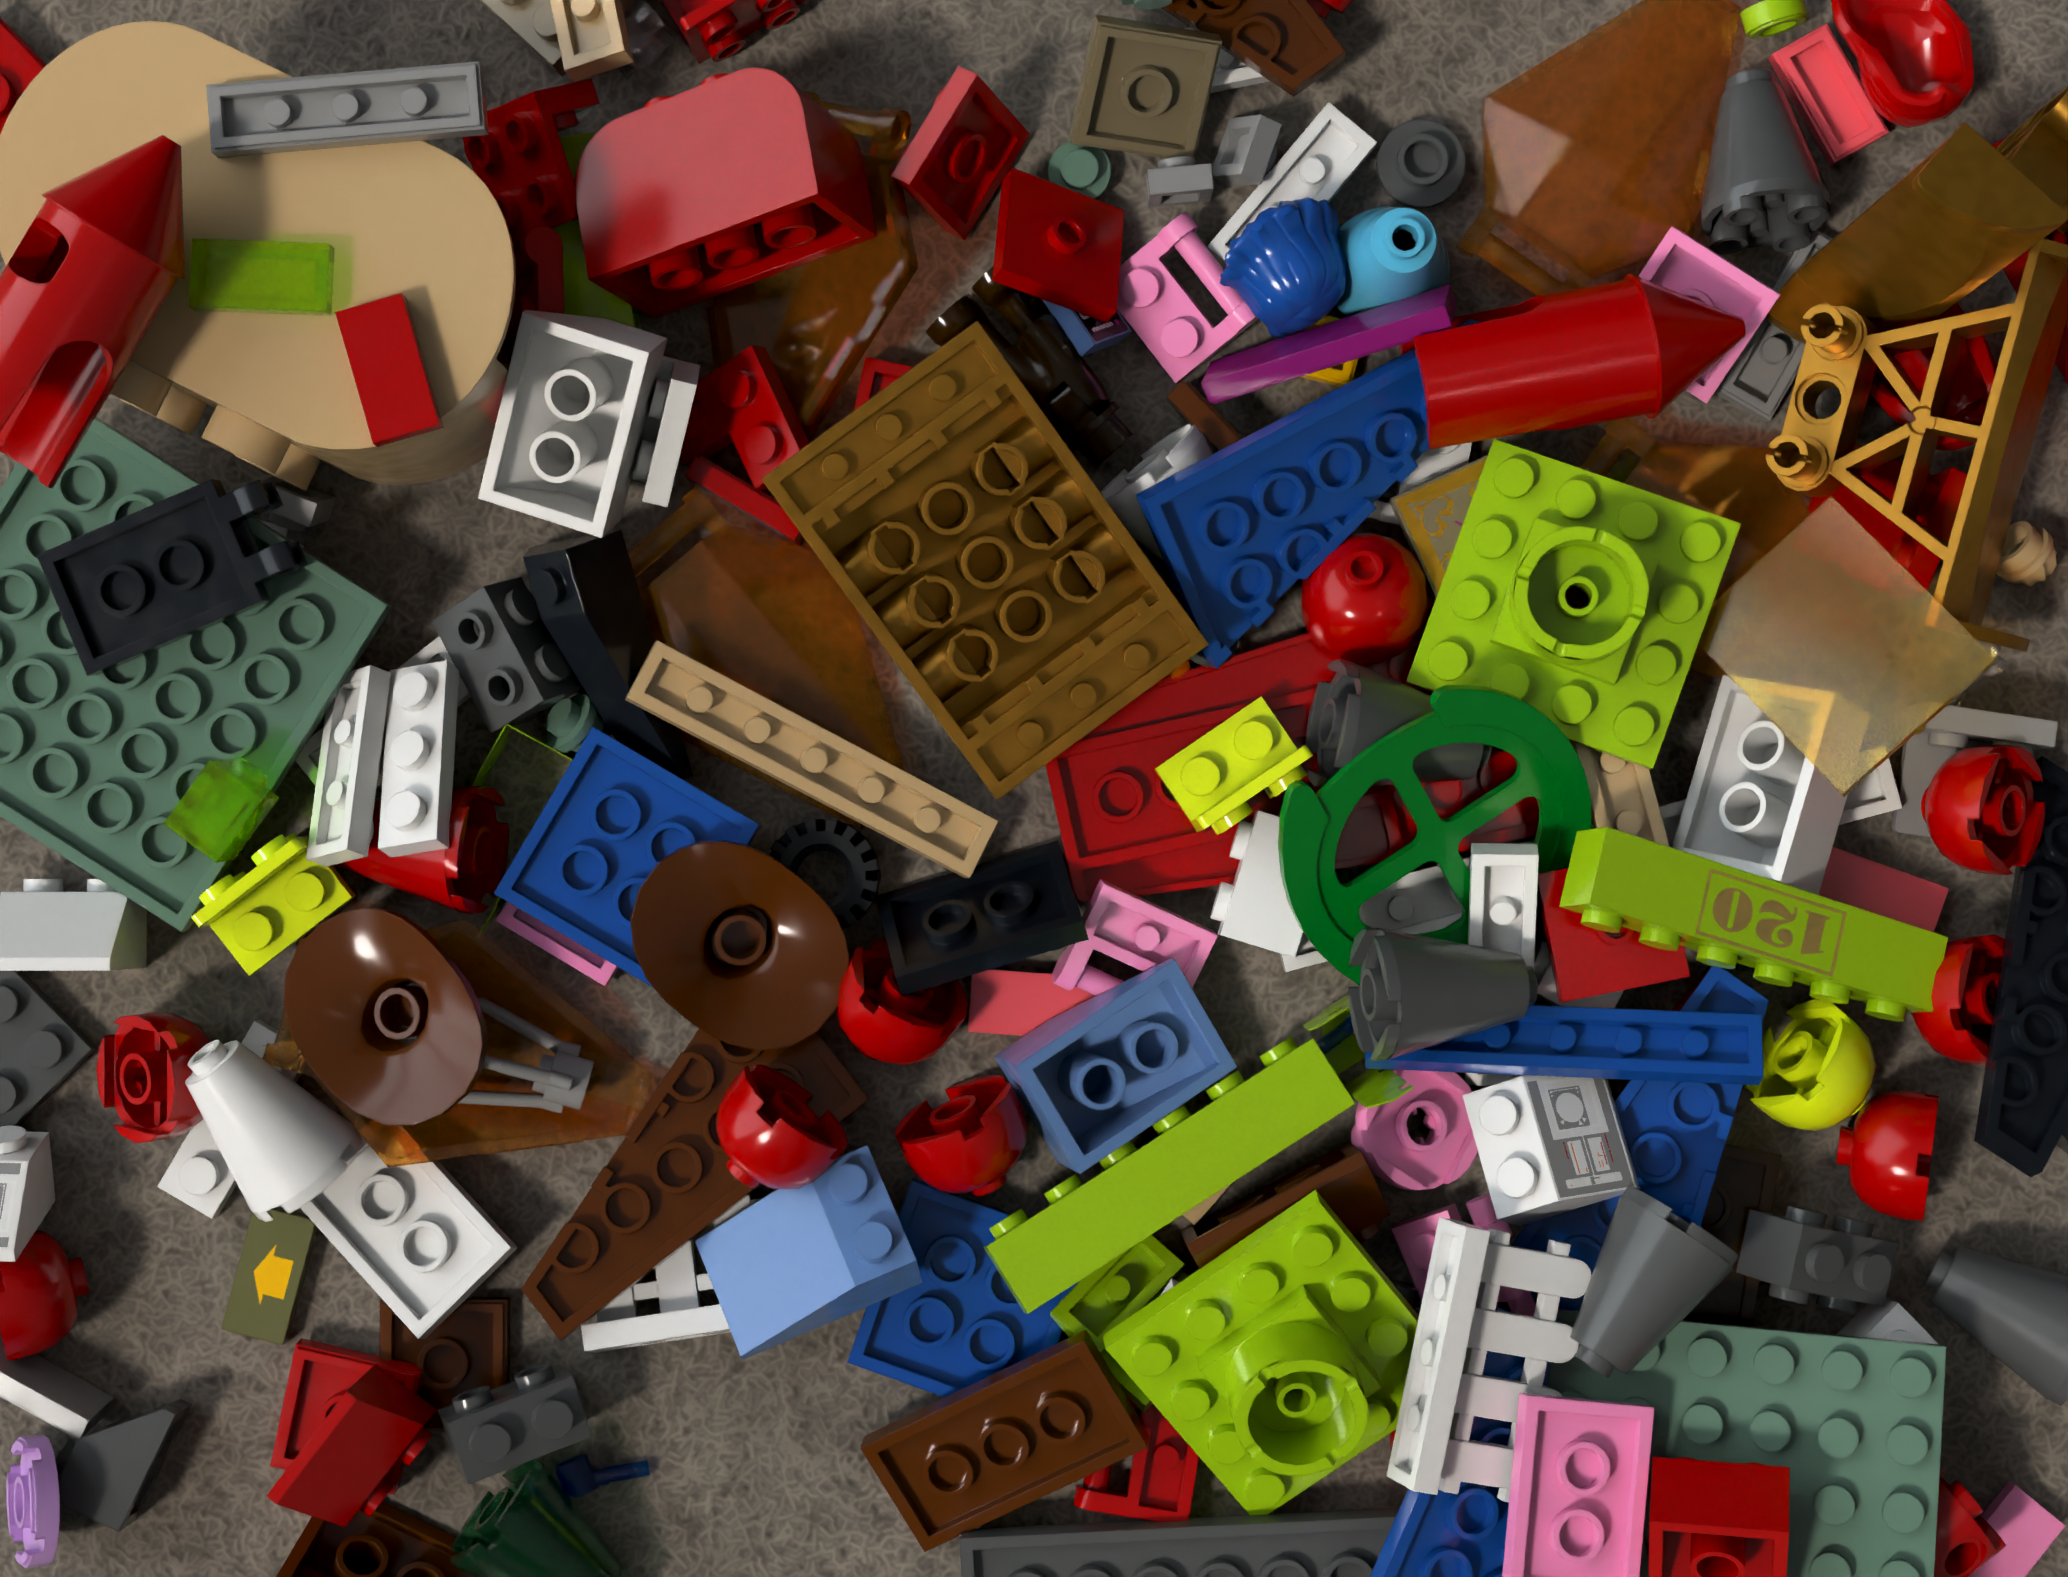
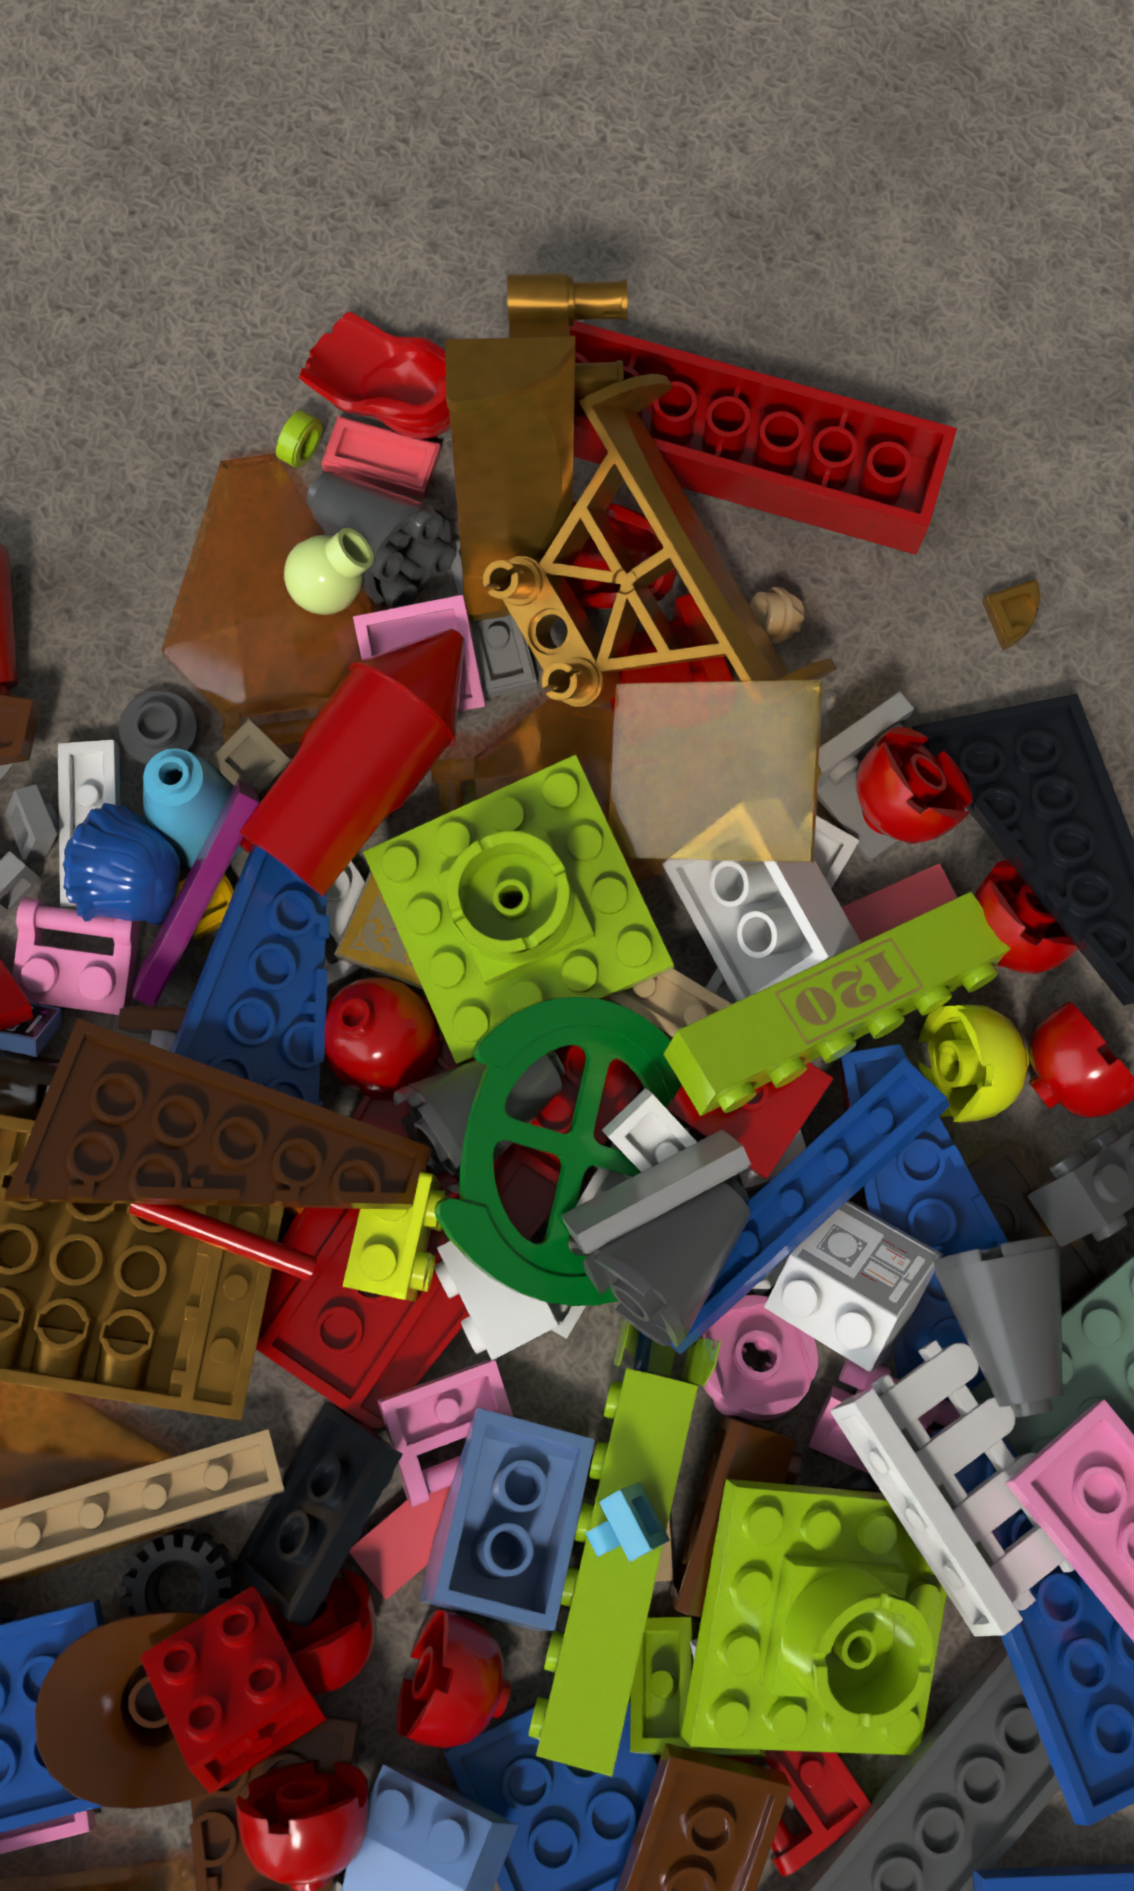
camera: 45 degrees left, 10 degrees down
(812, 987) = (230, 1690): none -> red bracket
(1112, 649) = (228, 1237): none -> red bar
(1151, 536) = (172, 1131): none -> reddish brown wing
(1211, 1152) = (629, 1524): none -> medium azure tile
(1469, 930) = (655, 1191): none -> light grey tile
(1477, 272) = (250, 757): none -> dark tan tile
(1688, 170) = (327, 571): none -> yellowish green piece

